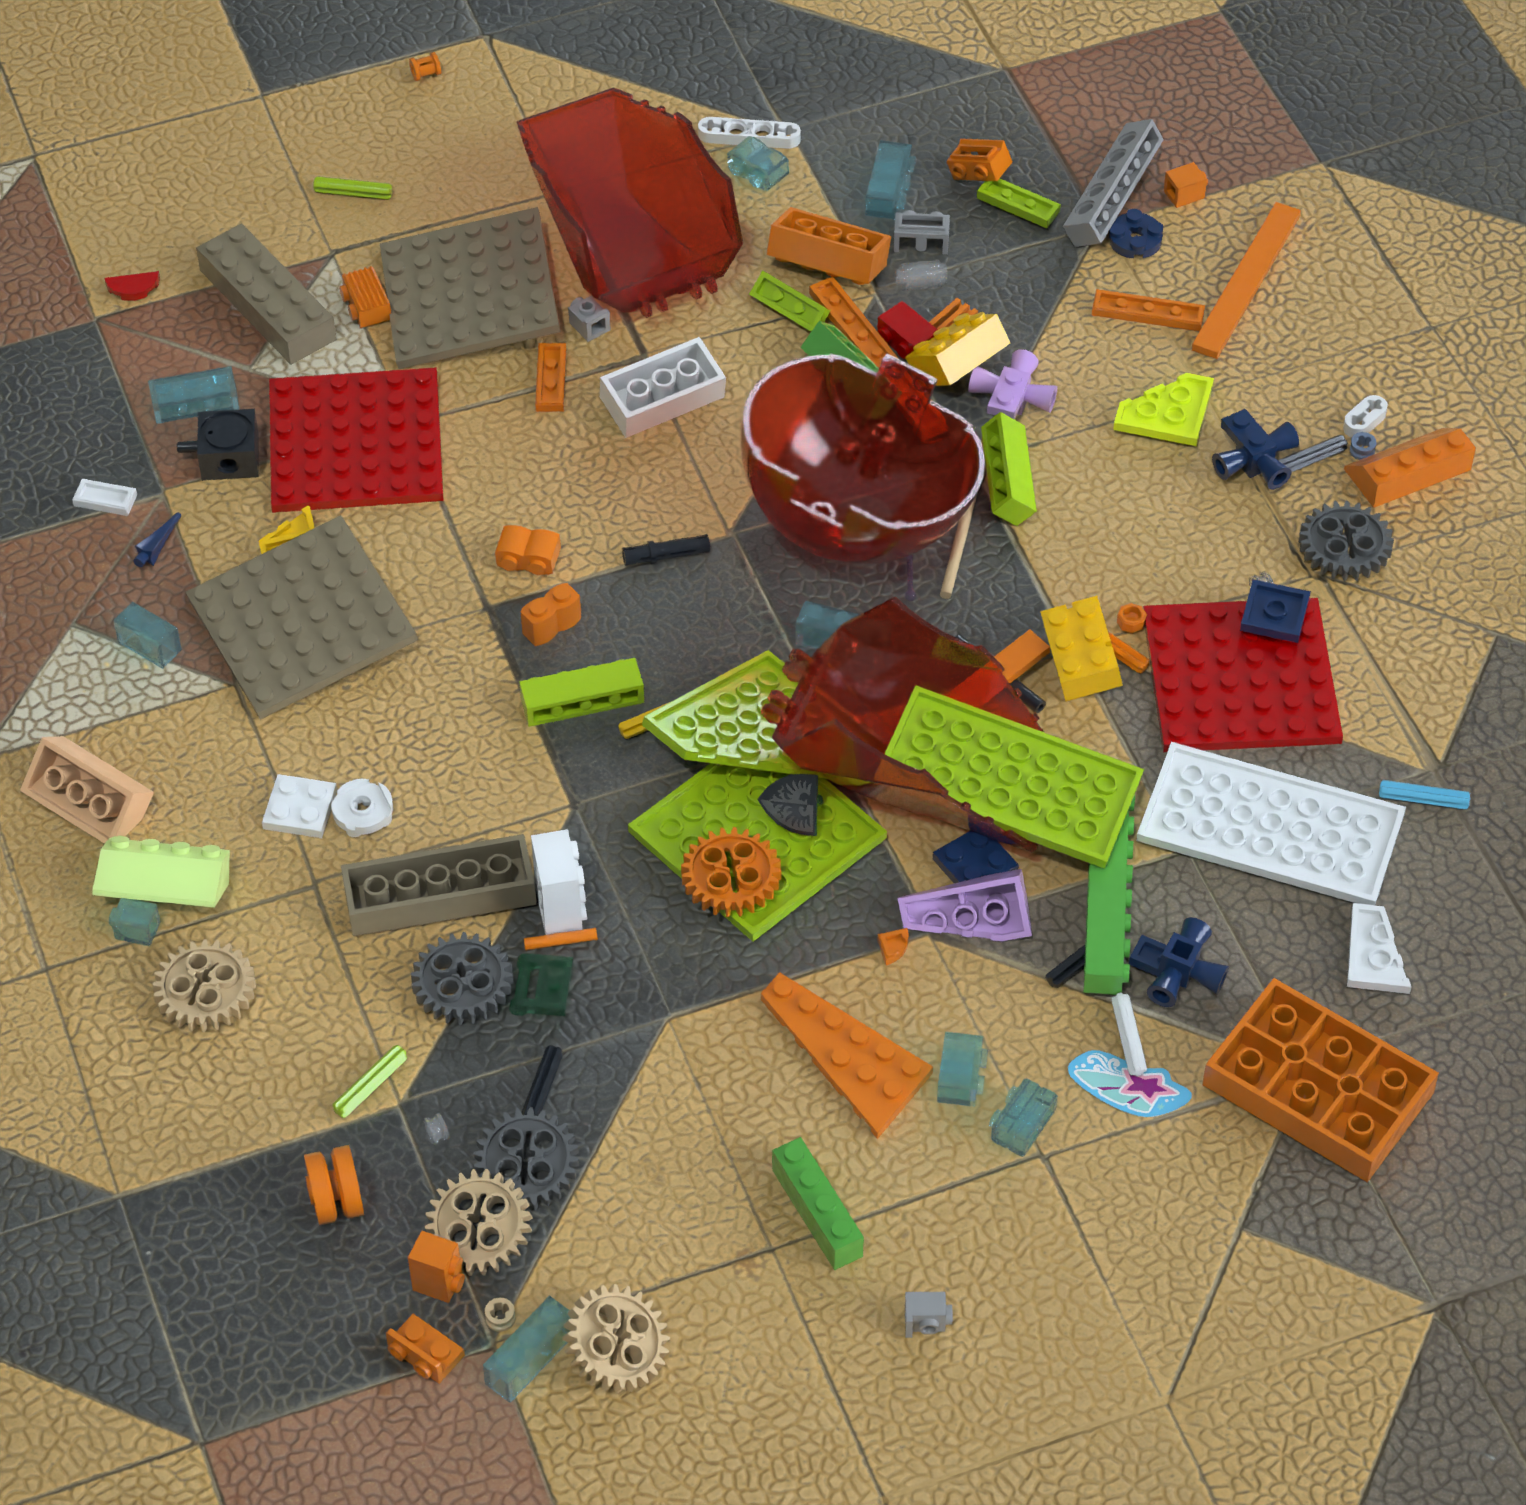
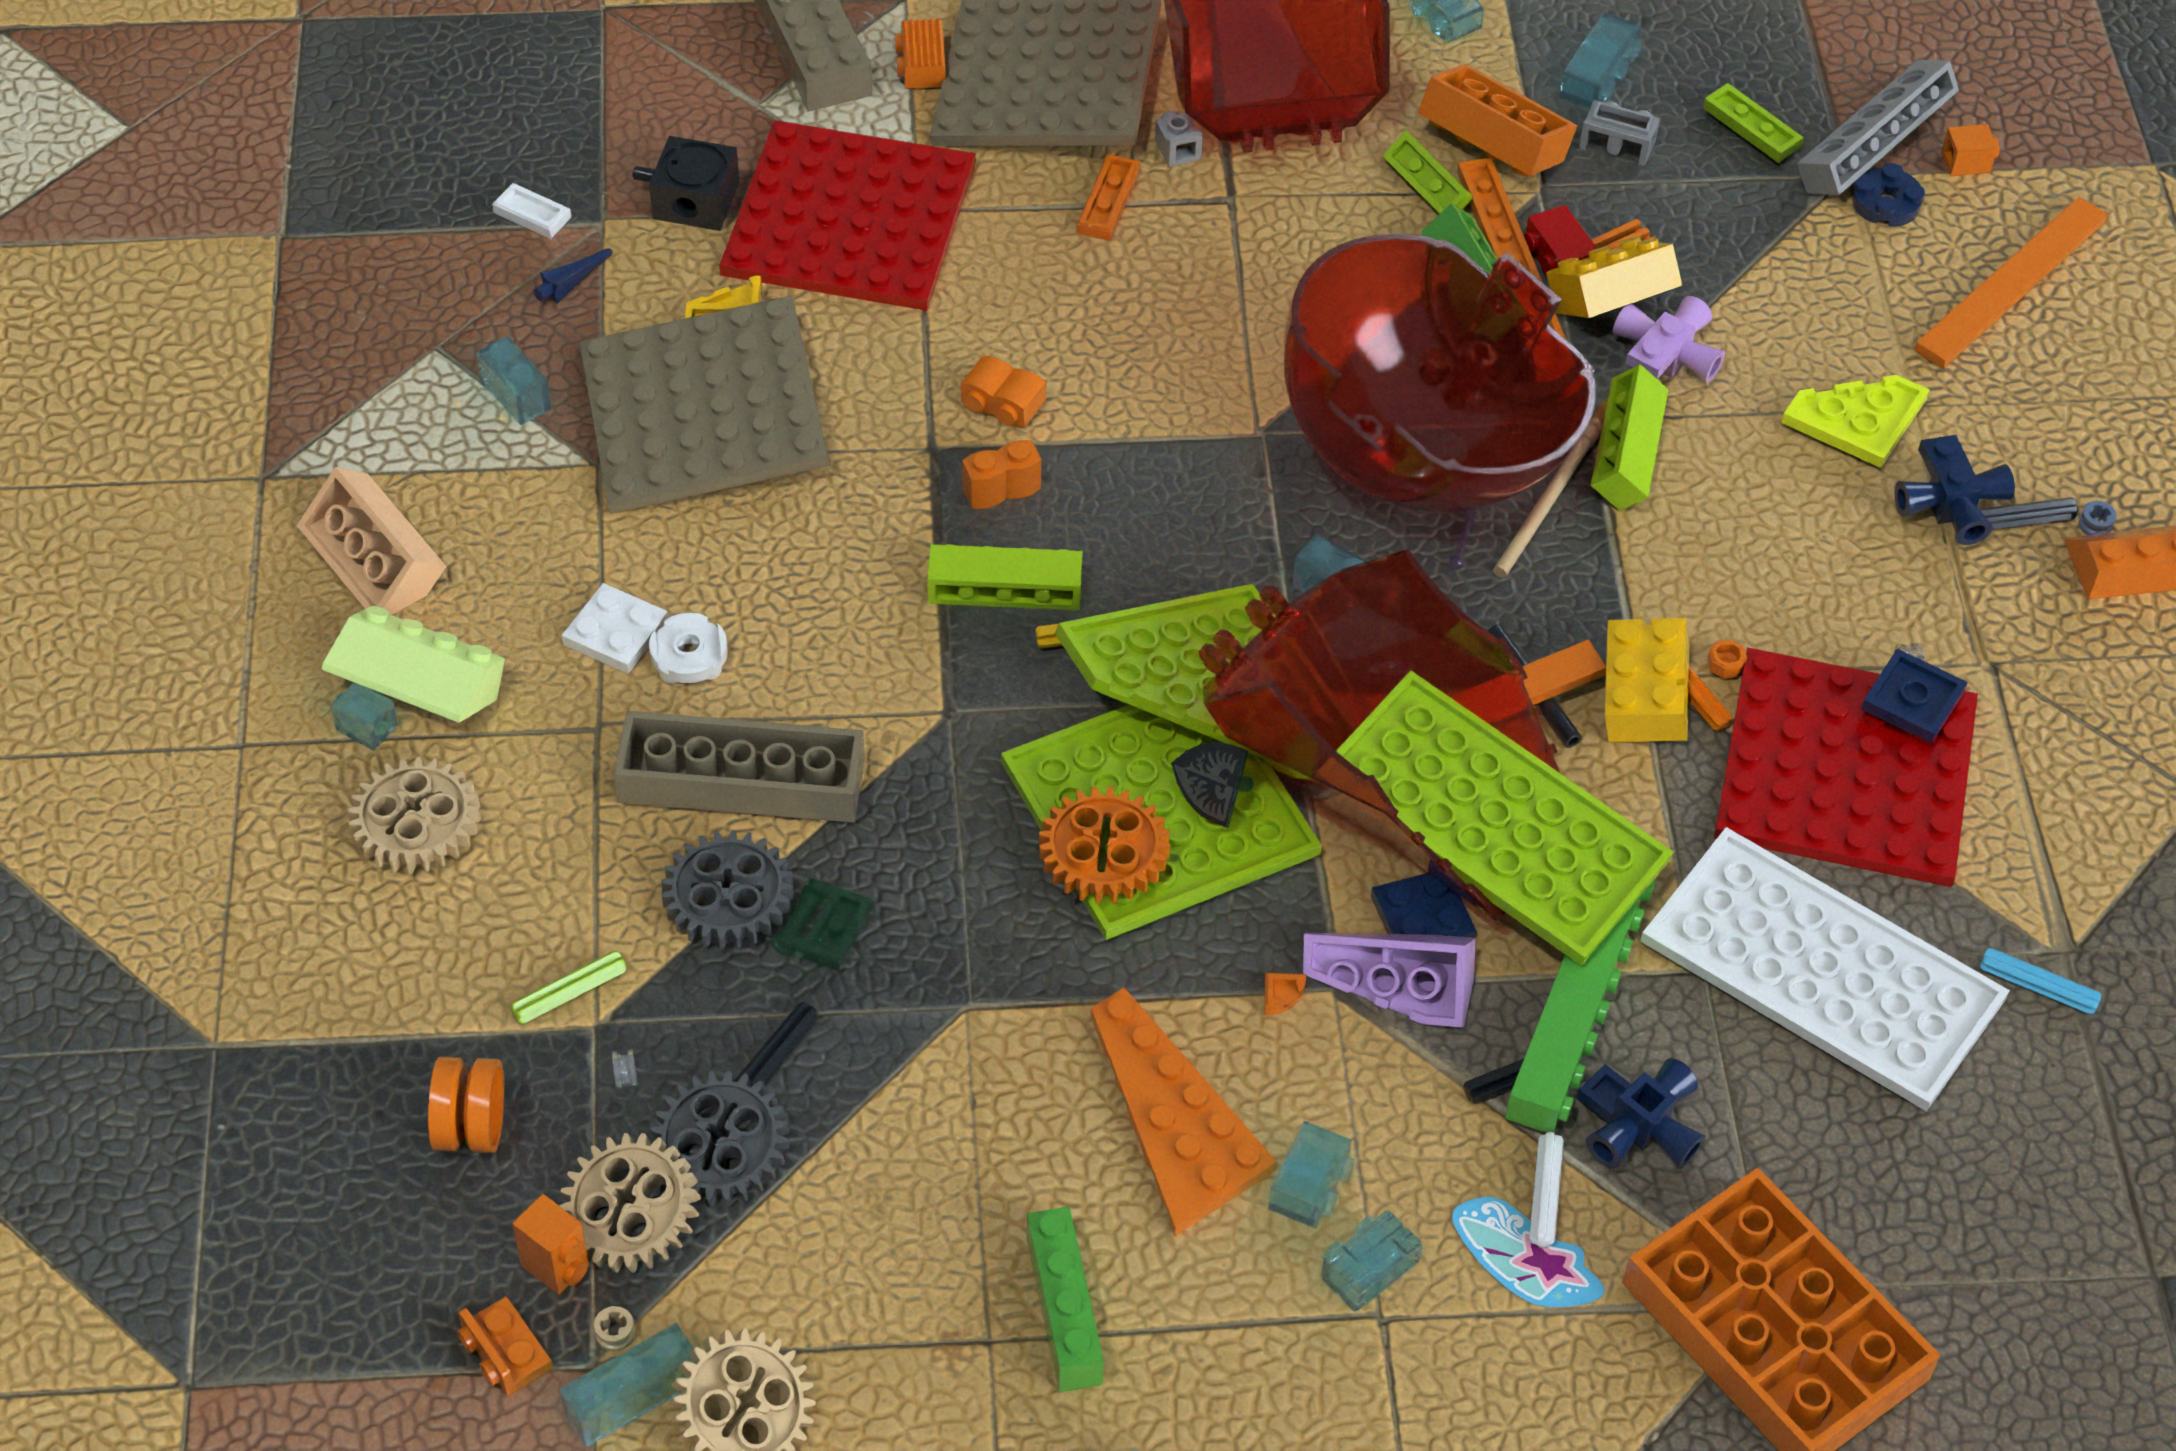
camera: 15 degrees right, 0 degrees up
(192, 393) = (657, 114): clear light blue brick -> none
(558, 882) = (881, 802): white brick -> none
(560, 938) = (868, 872): orange piece -> none
(662, 387) = (1235, 238): white brick -> none
(668, 549) = (1177, 433): black pin -> none
(921, 275) = (1601, 181): clear head -> none
(988, 165) = (1725, 71): orange window -> none
(1148, 310) = (1874, 289): orange tile -> none
(1361, 413) = (2108, 479): white beam -> none
(1364, 534) = (2064, 629): dark grey gear -> none
(1372, 952) = (1906, 1170): white wing -> none

